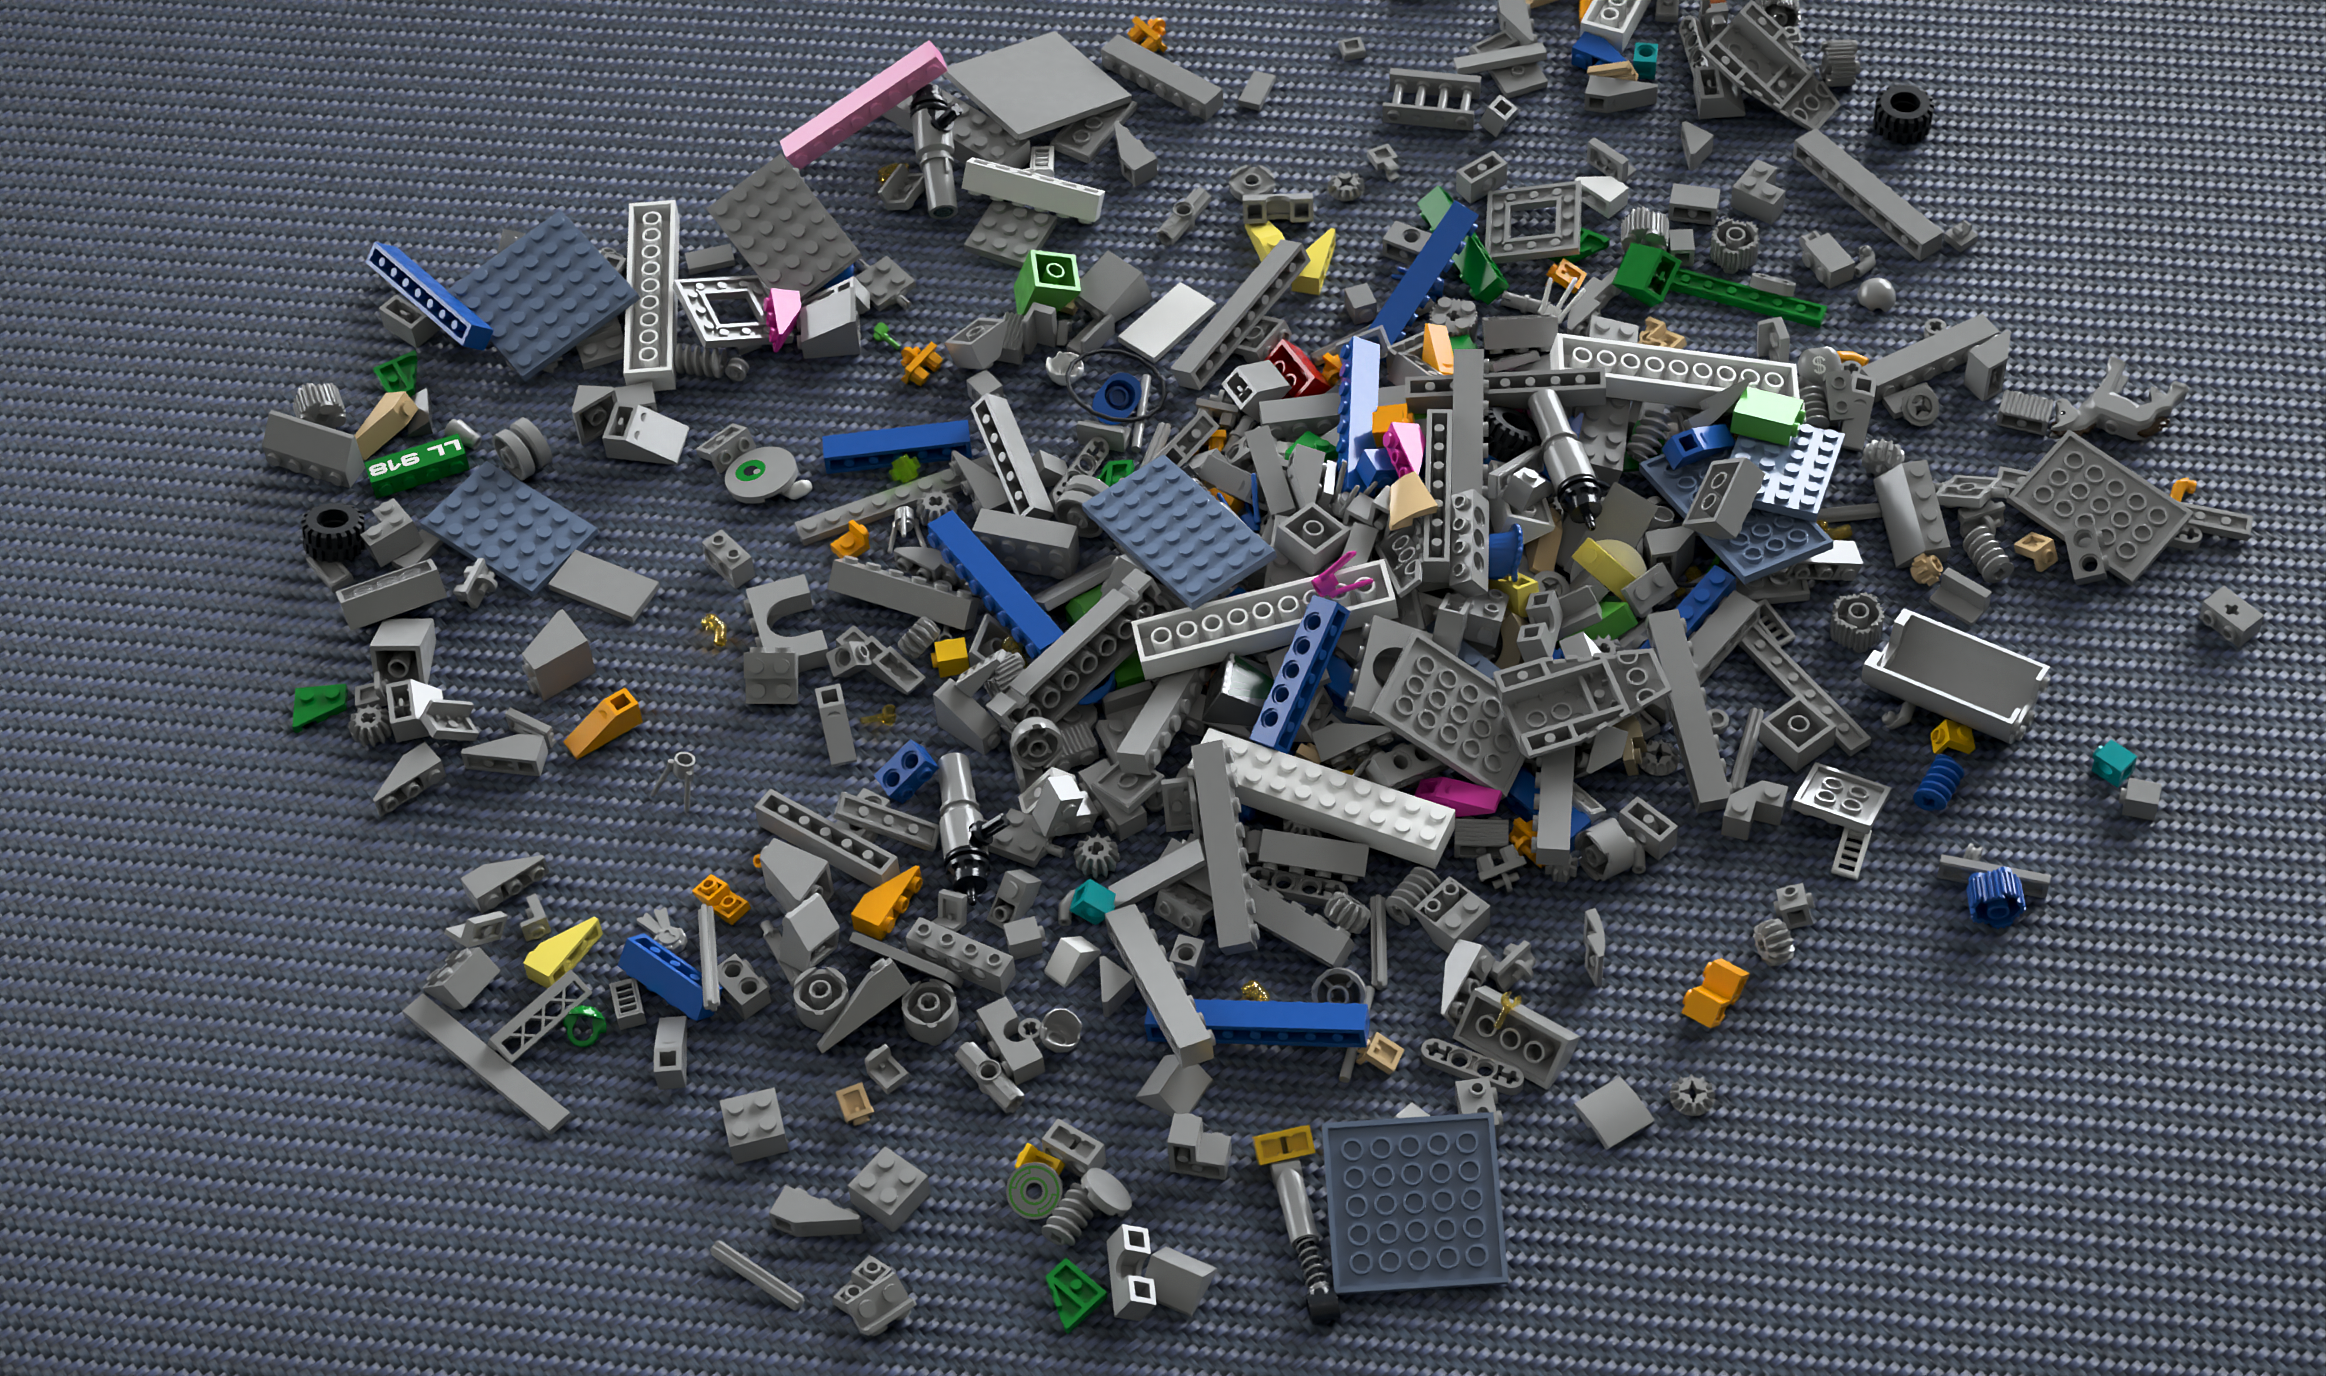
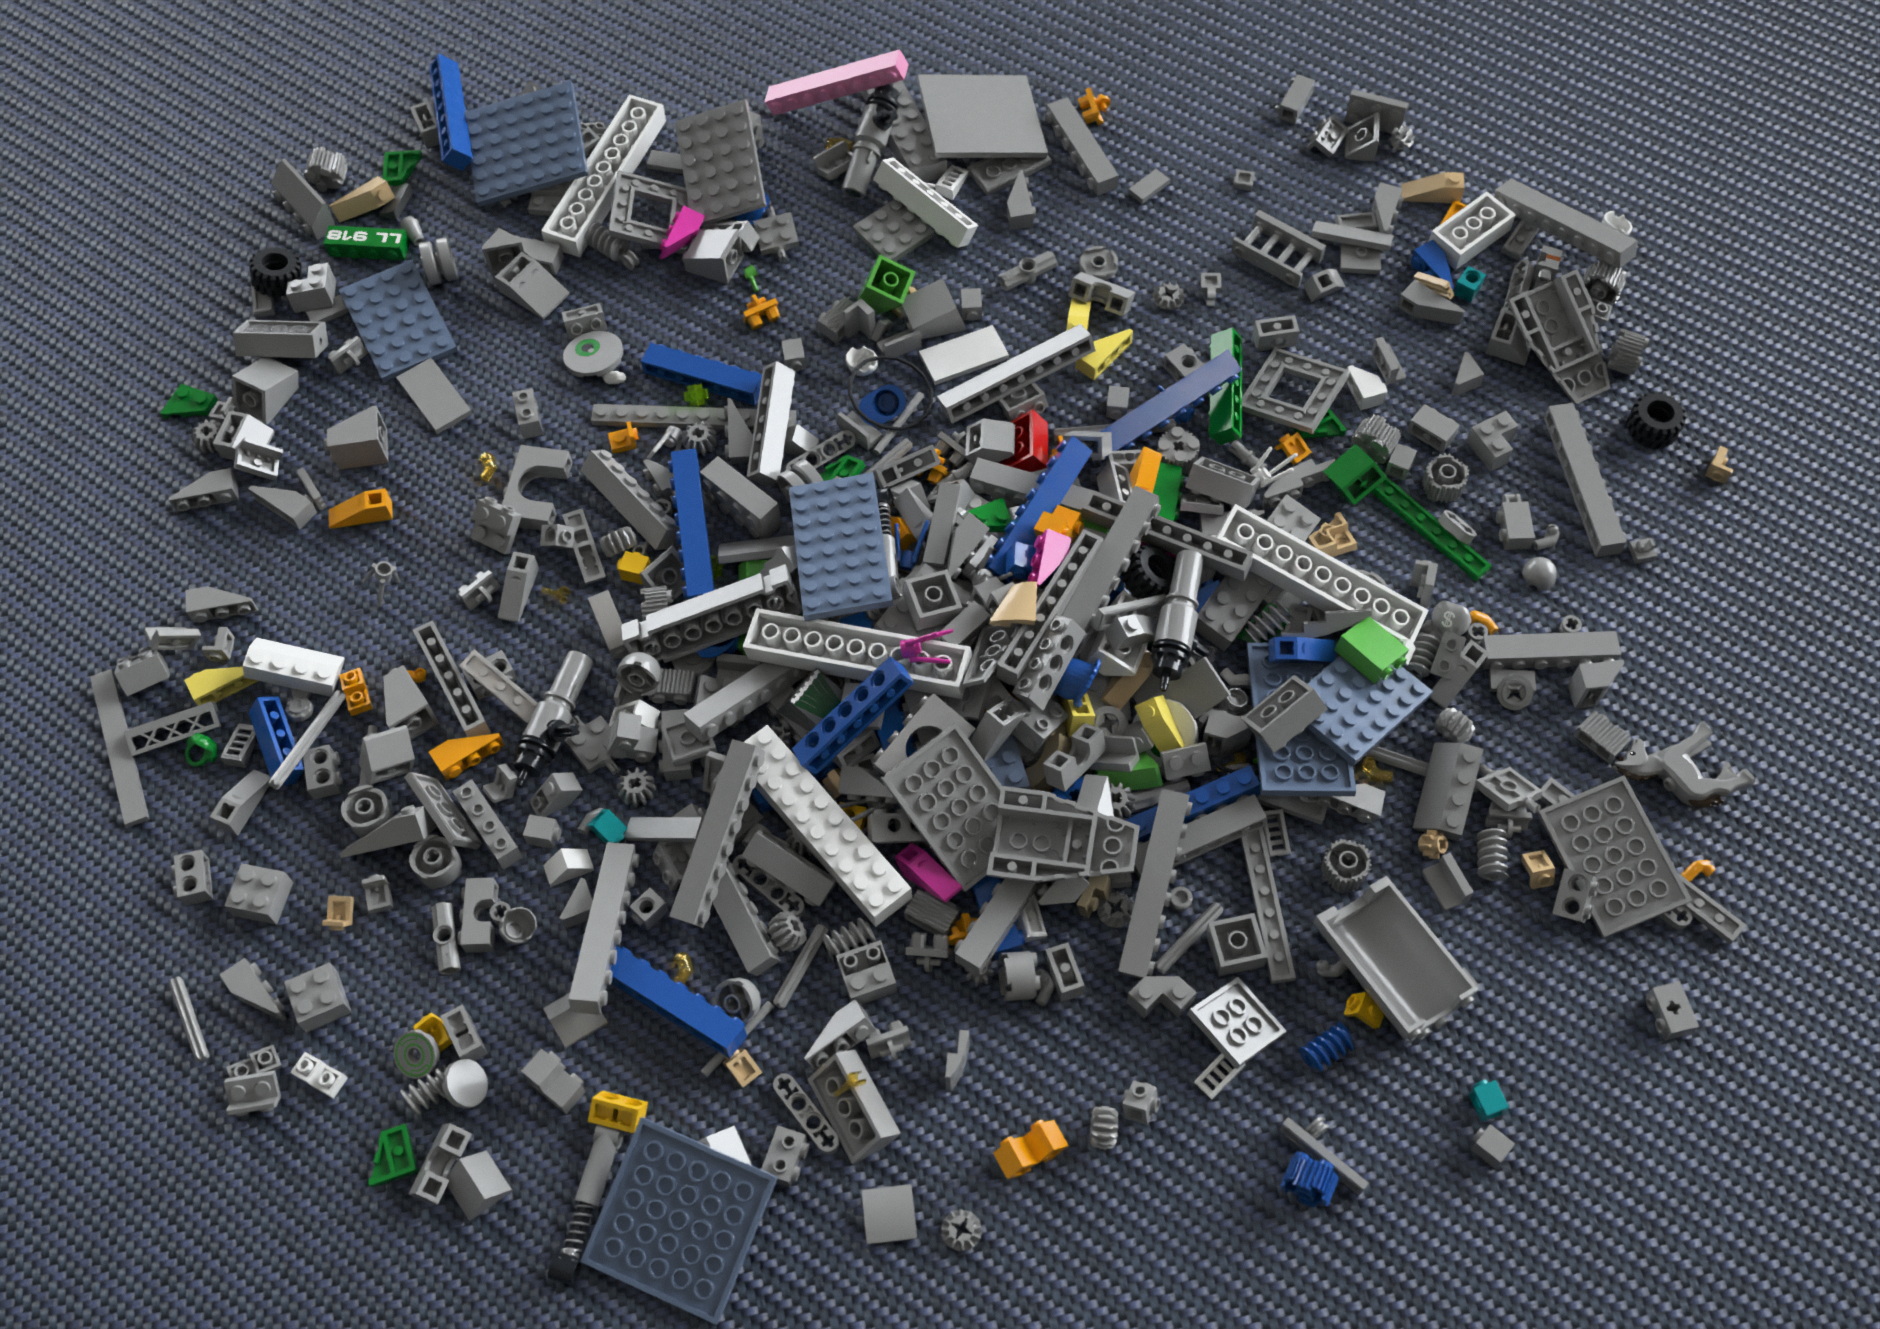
camera: 25 degrees right, 10 degrees up
(641, 901) = (292, 667): none -> white slope
(671, 1141) = (197, 876): none -> light grey brick
(795, 746) = (479, 590): none -> light grey hips
(906, 771) = (540, 650): blue brick -> none
(938, 1262) = (319, 1075): none -> white slope
(975, 677) = (628, 596): light grey slope -> none
(978, 343) = (807, 314): light grey slope -> none
(1010, 645) = (678, 584): clear yellow arm -> none
(1148, 266) = (971, 304): none -> light grey brick
(1985, 134) = (1717, 468): none -> tan bracket

